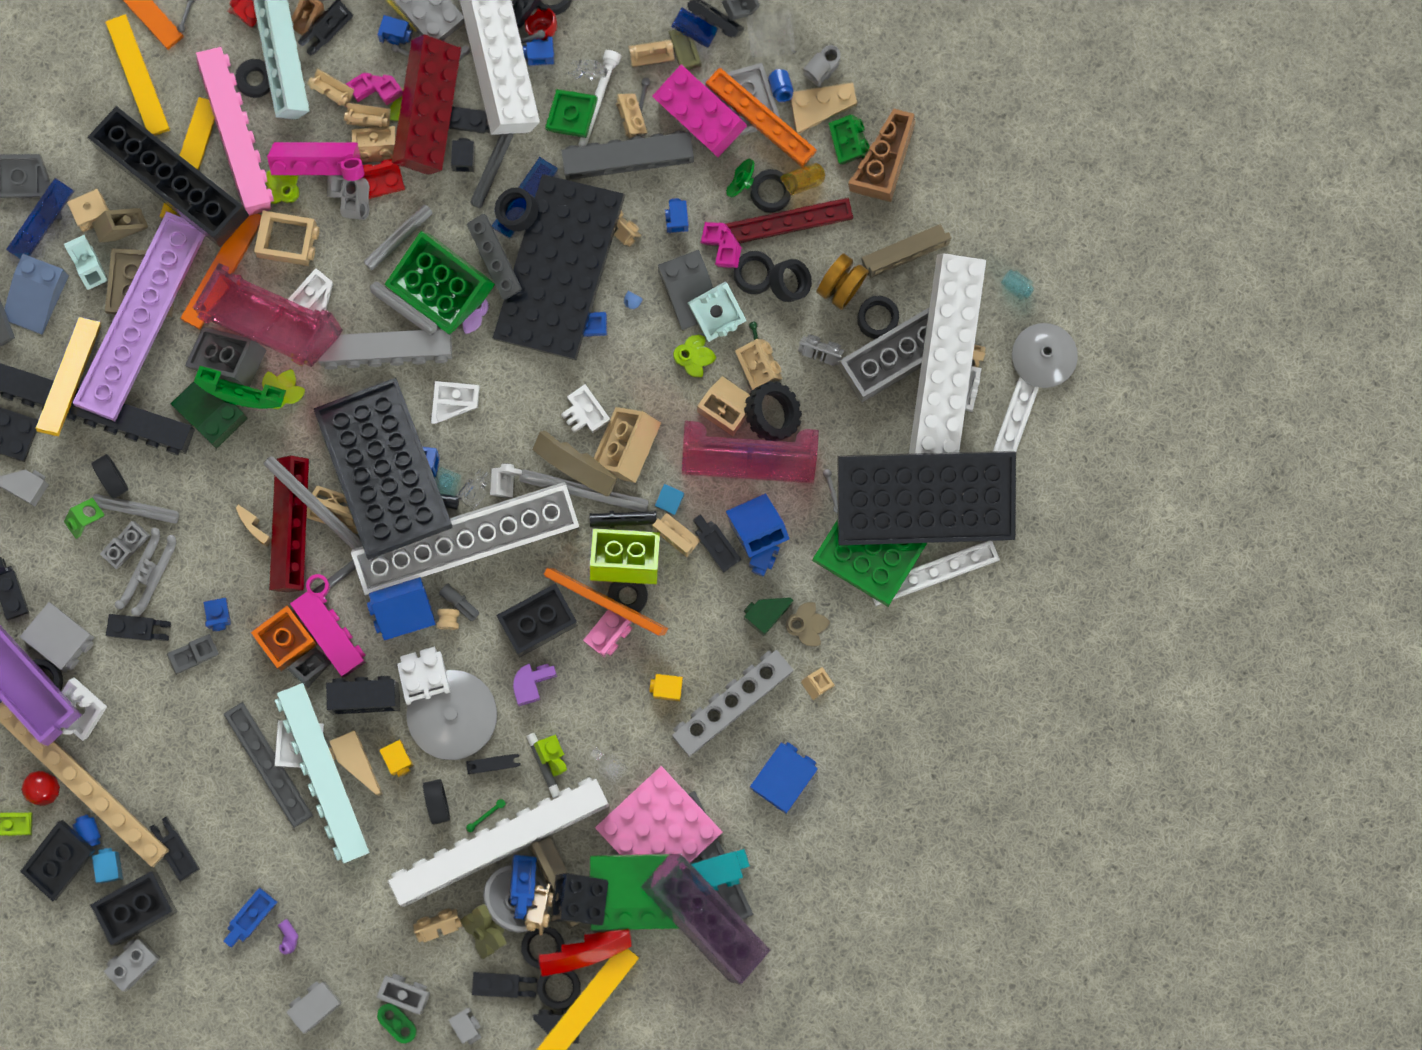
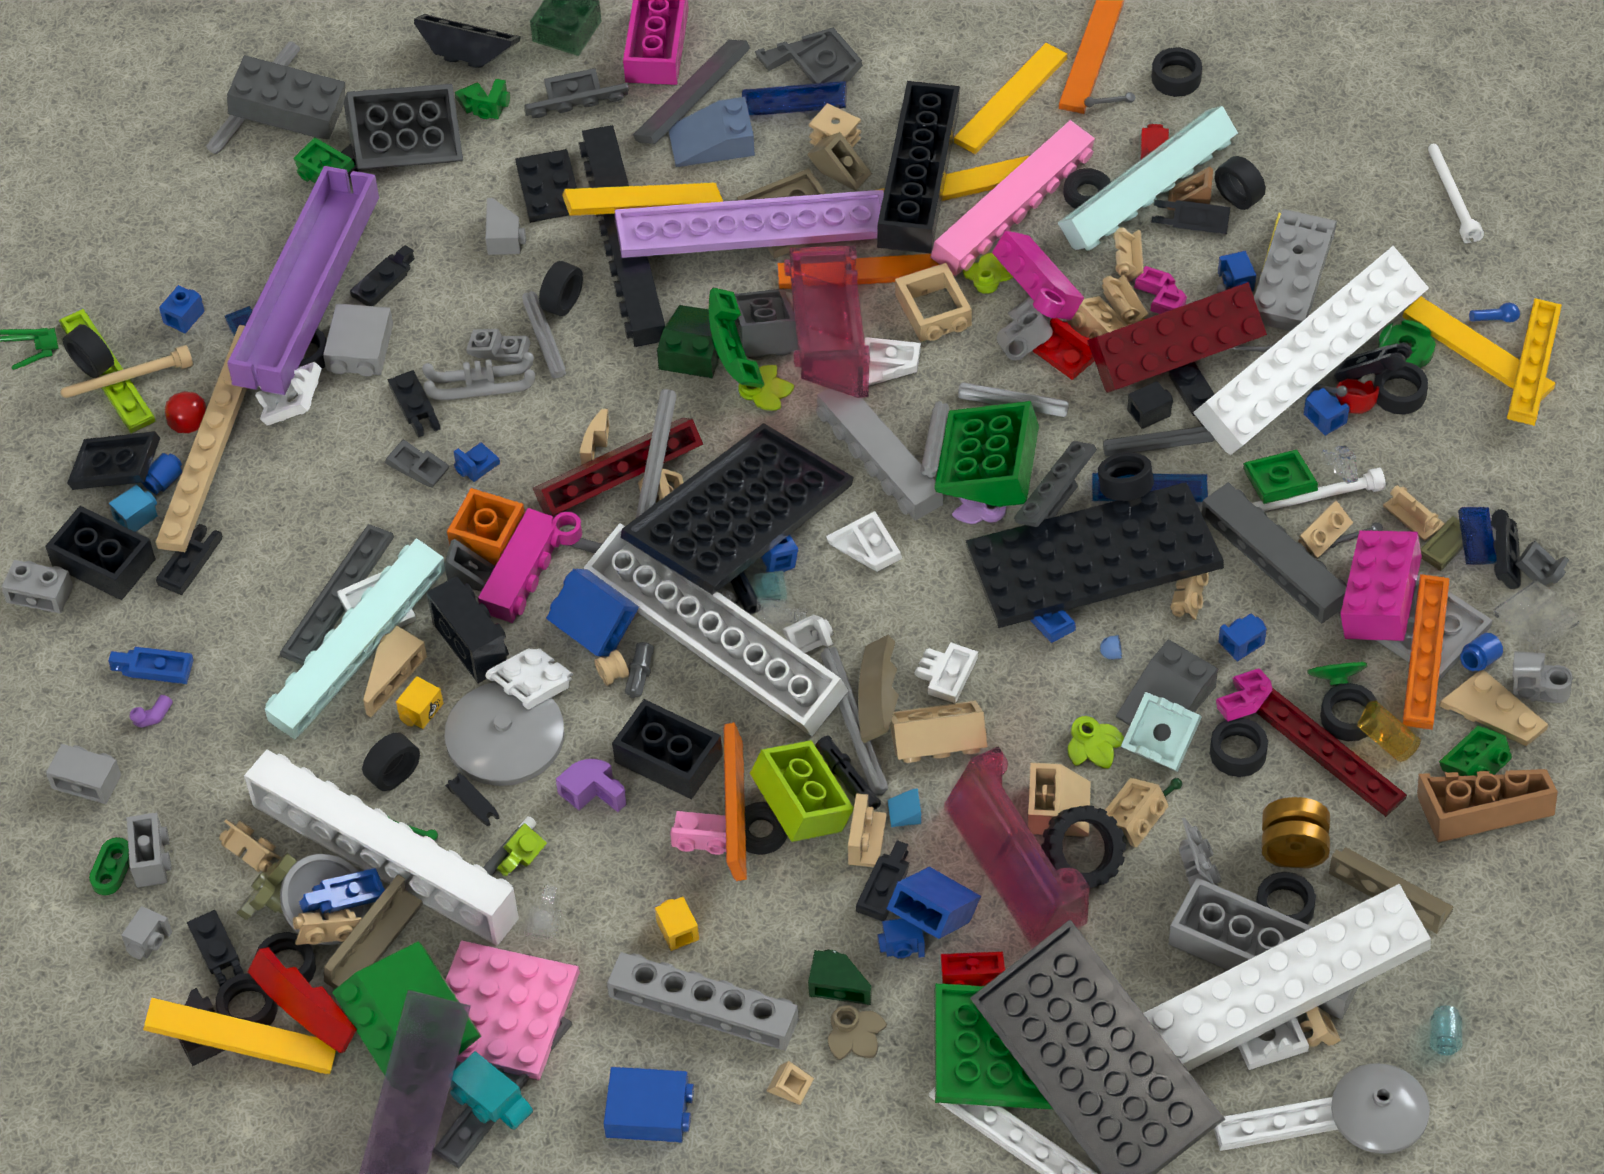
camera: 65 degrees right, 25 degrees down
(77, 520) = (496, 288): bright green bracket -> none
(86, 262) = (780, 154): light aqua brick -> none
(579, 899) = (359, 951): black bracket -> none
(777, 283) = (1233, 779): black tyre -> none
(812, 529) = (971, 968): none -> red bracket

